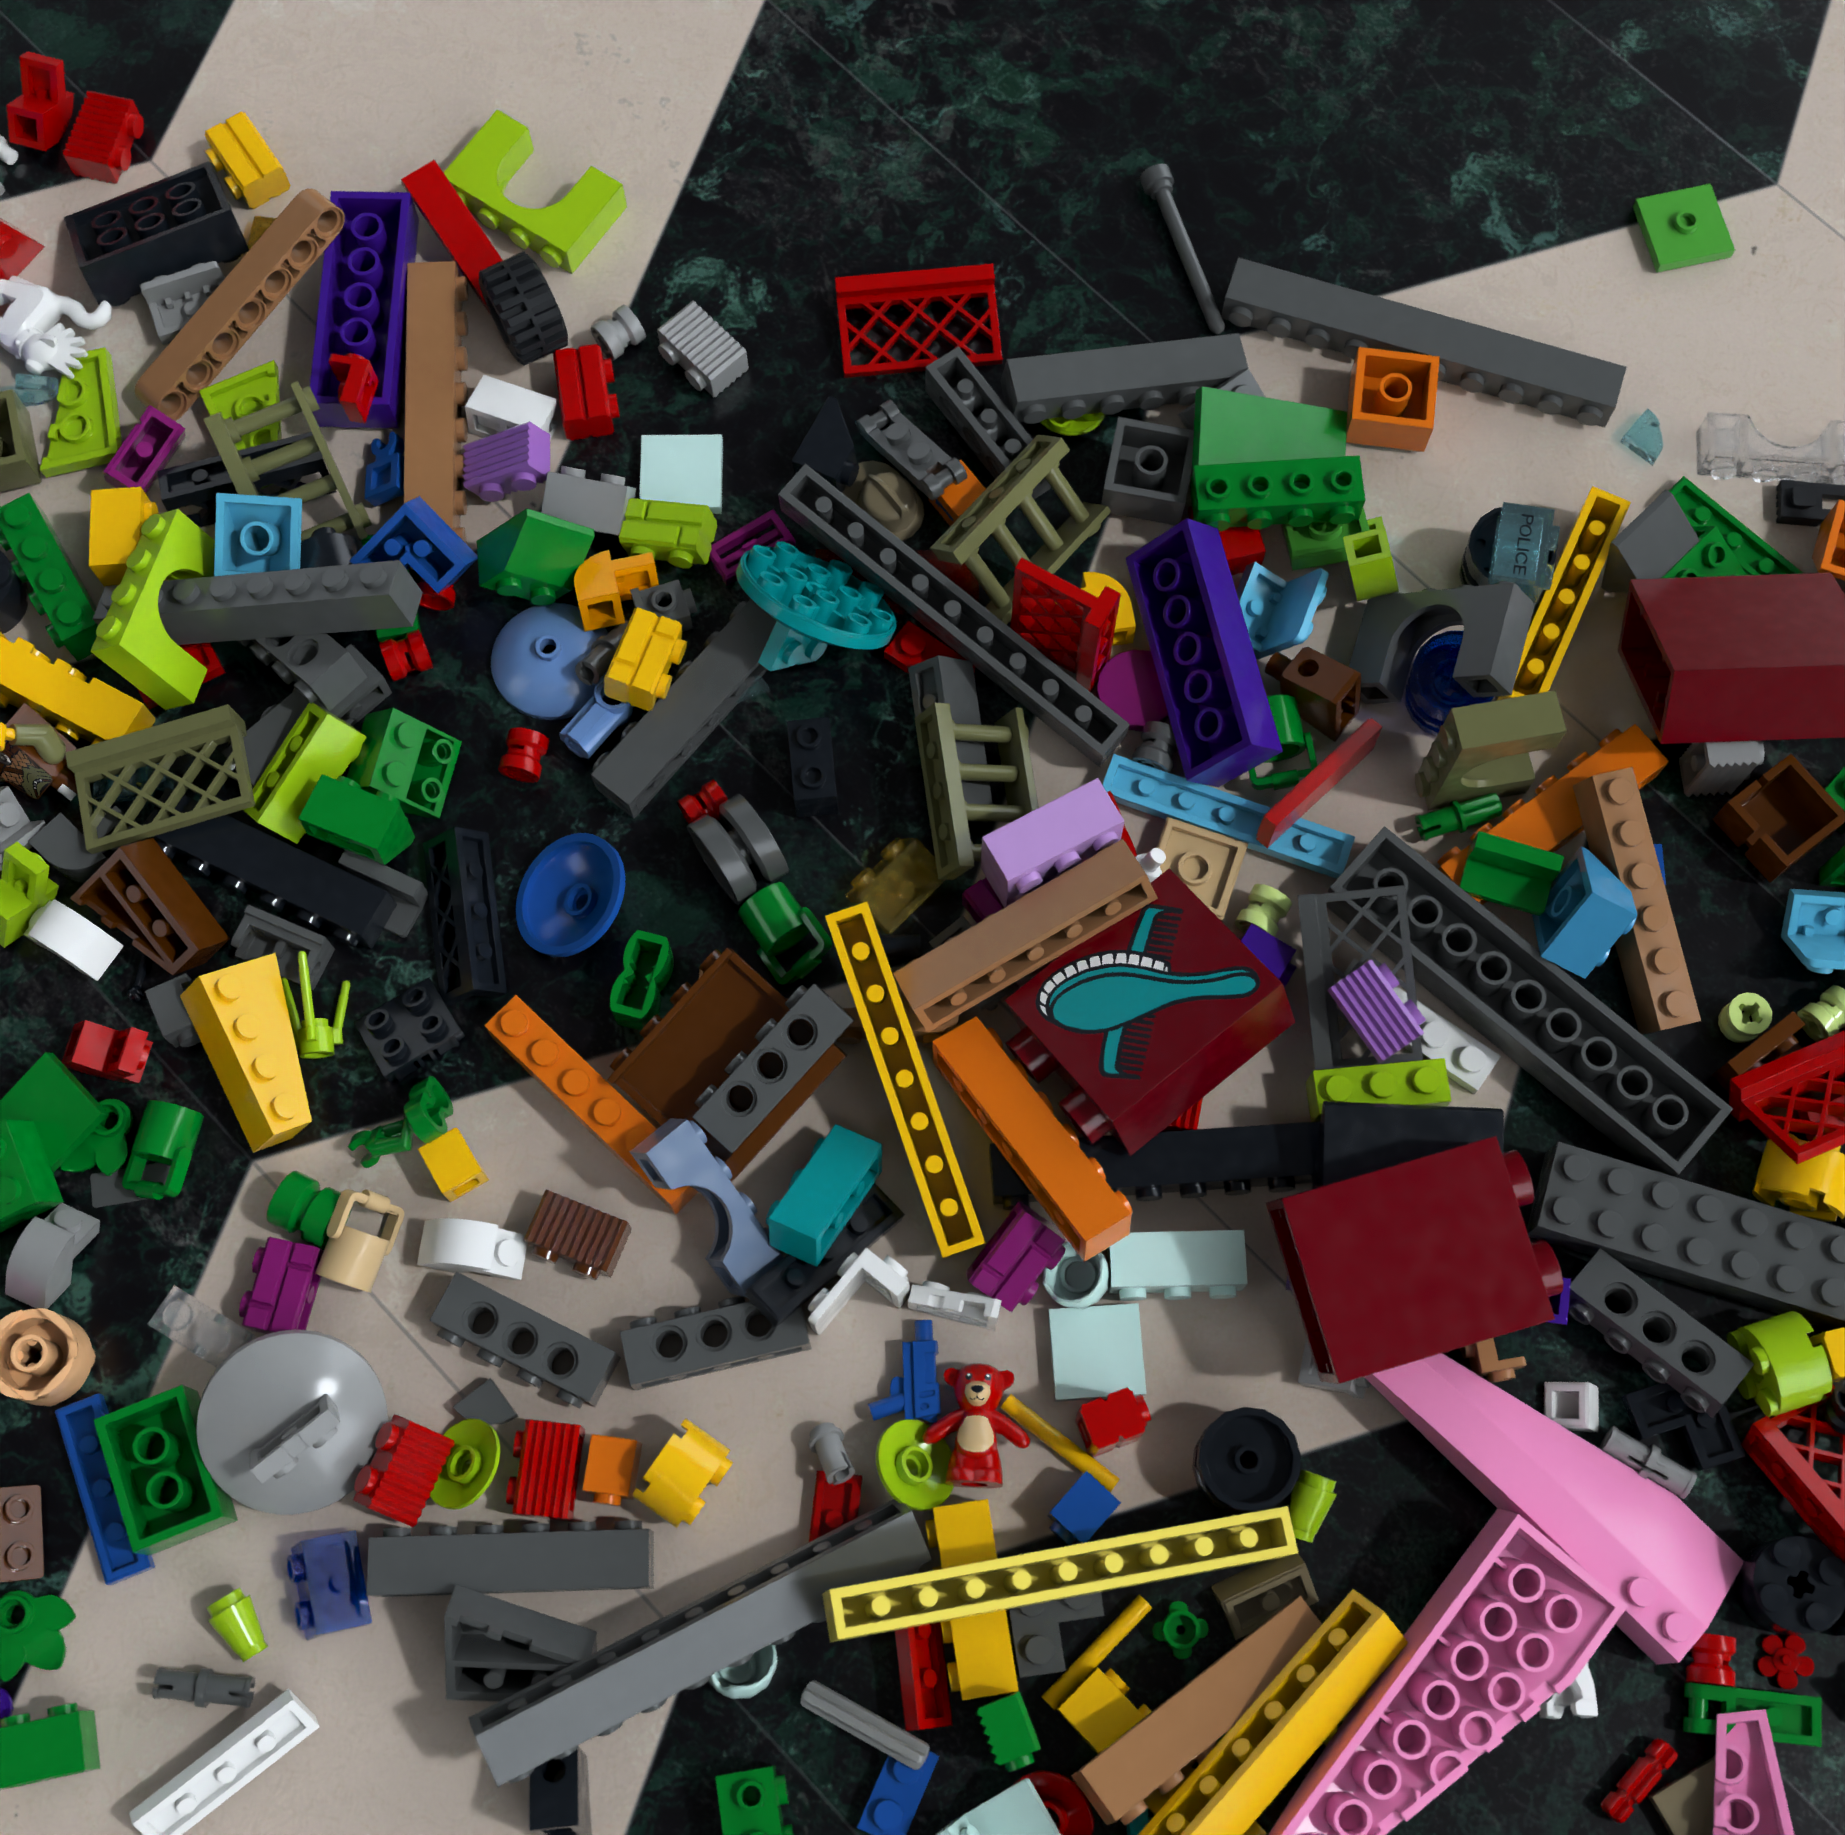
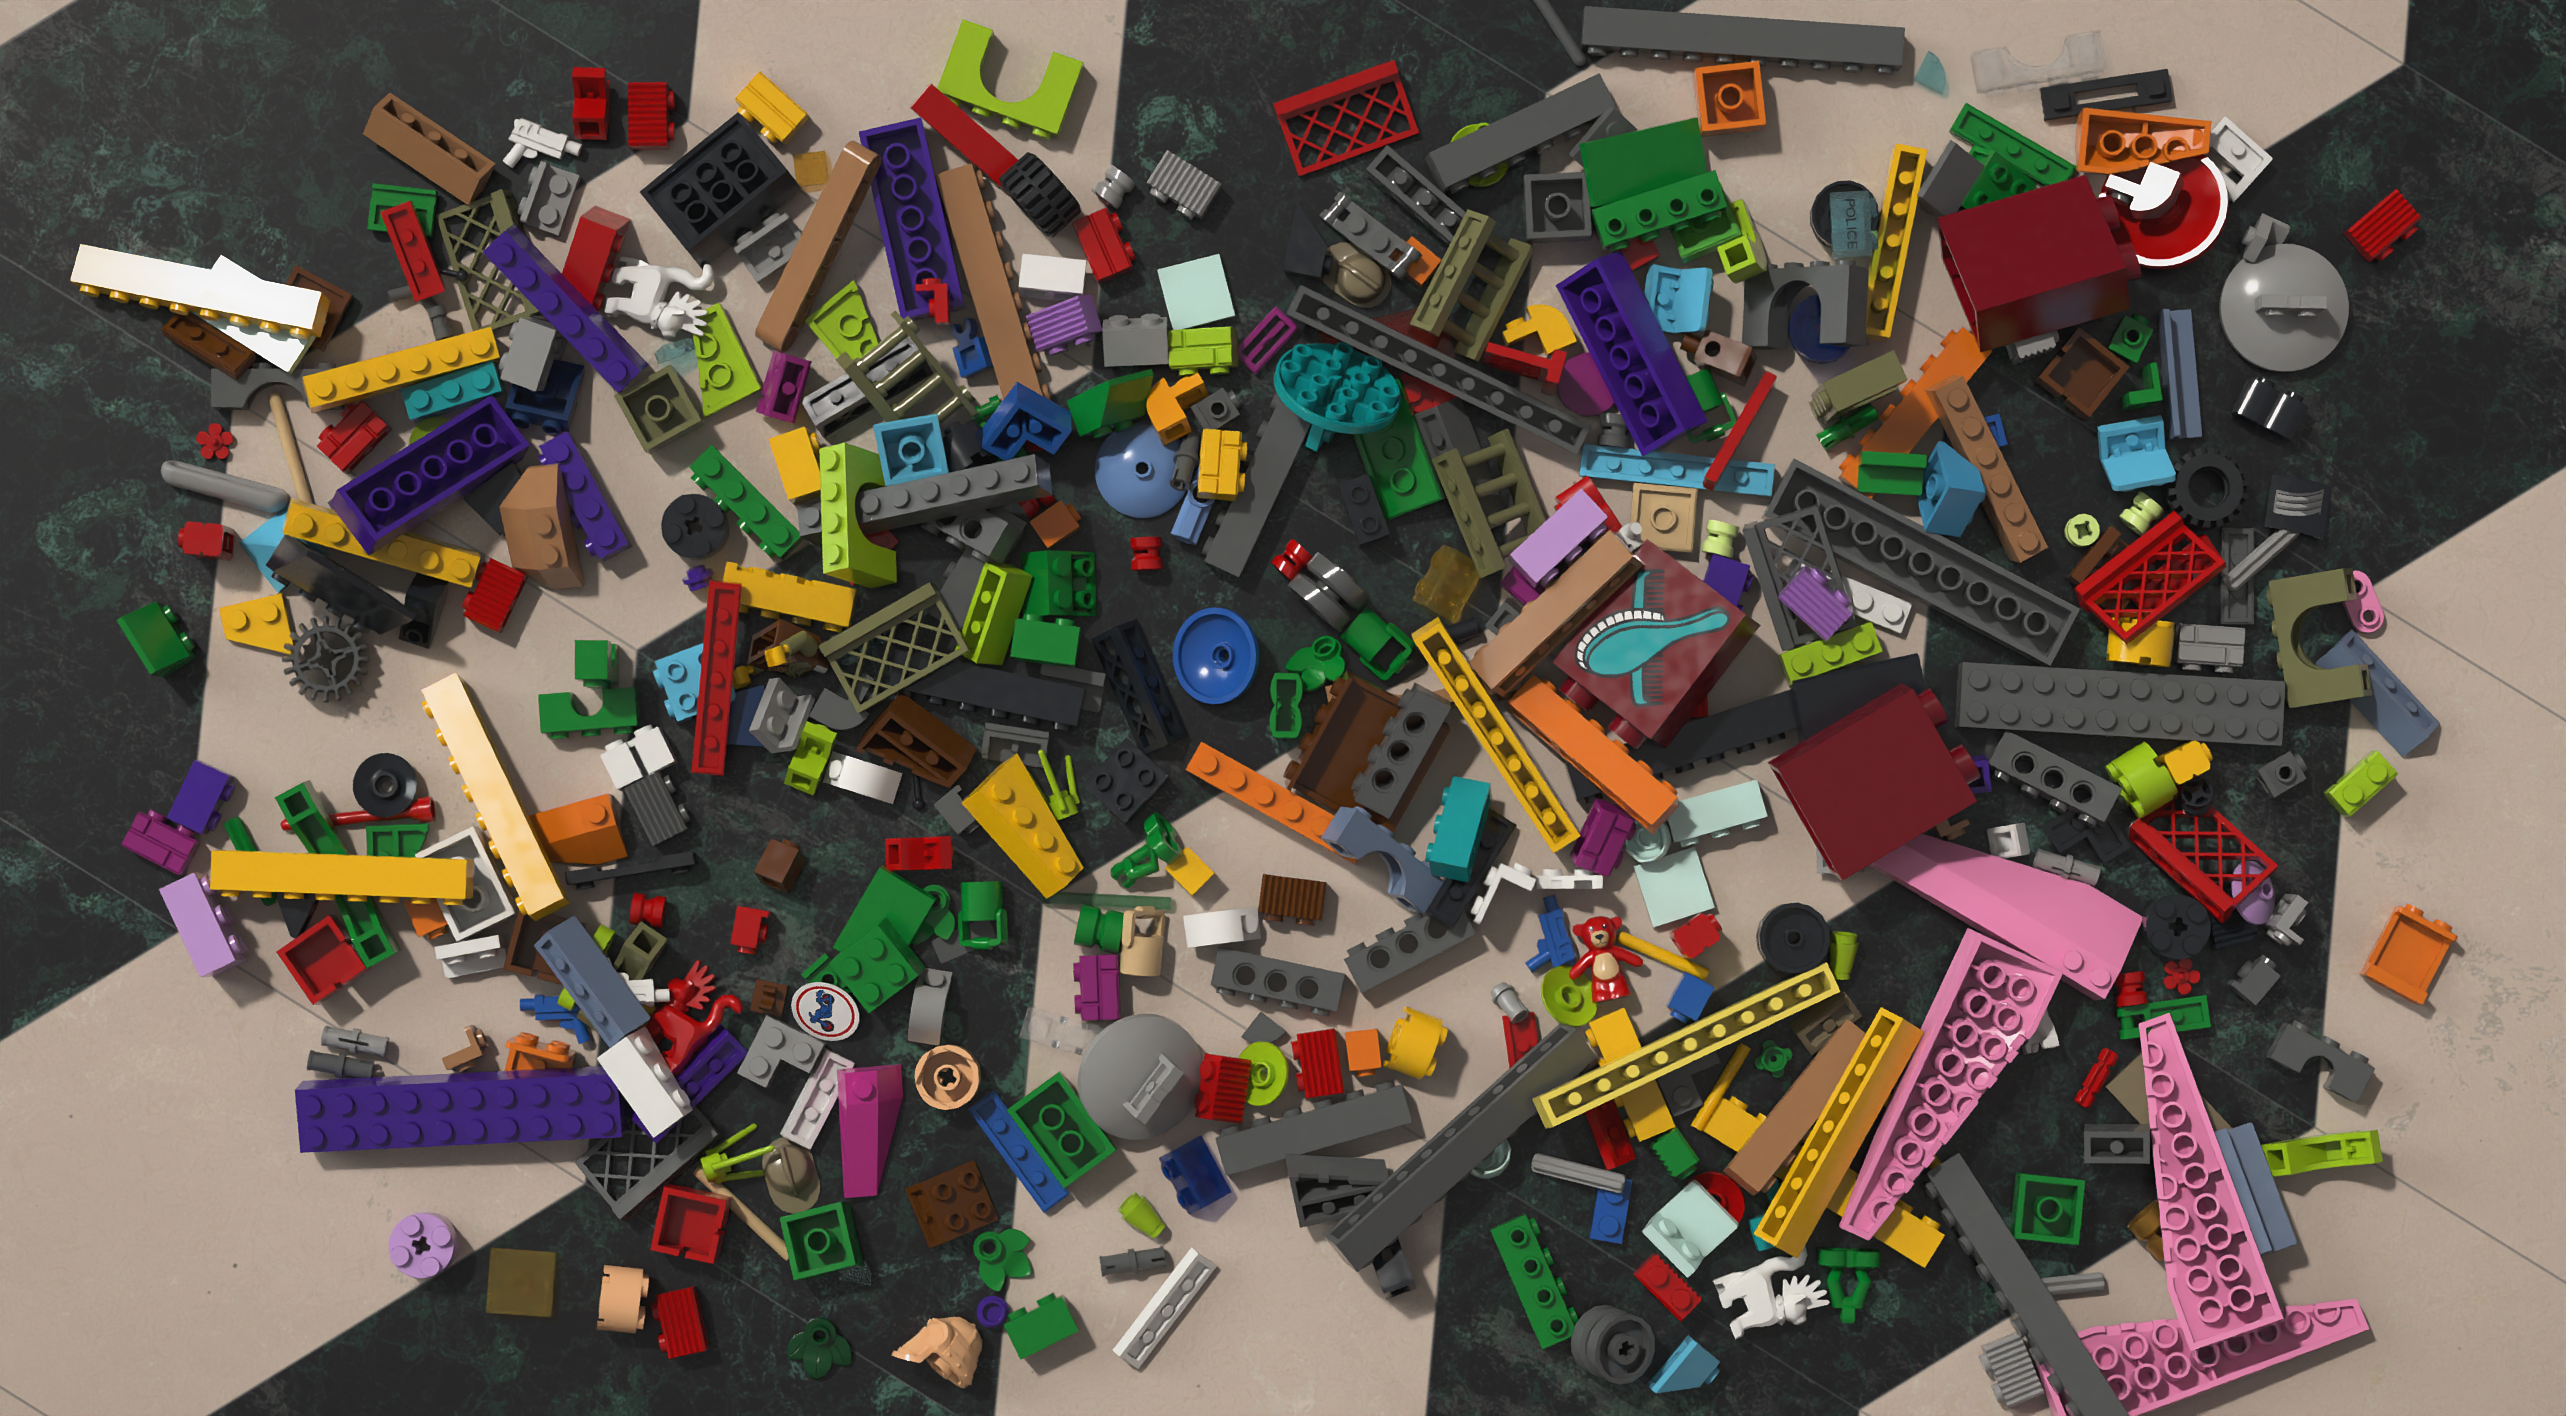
camera: 10 degrees left, 15 degrees up
(334, 1177) = (1108, 900): none -> clear green bar
(423, 691) = (1056, 523): none -> orange brick
(699, 939) = (1318, 663): none -> green plate
(871, 714) = (1400, 463): none -> green tile

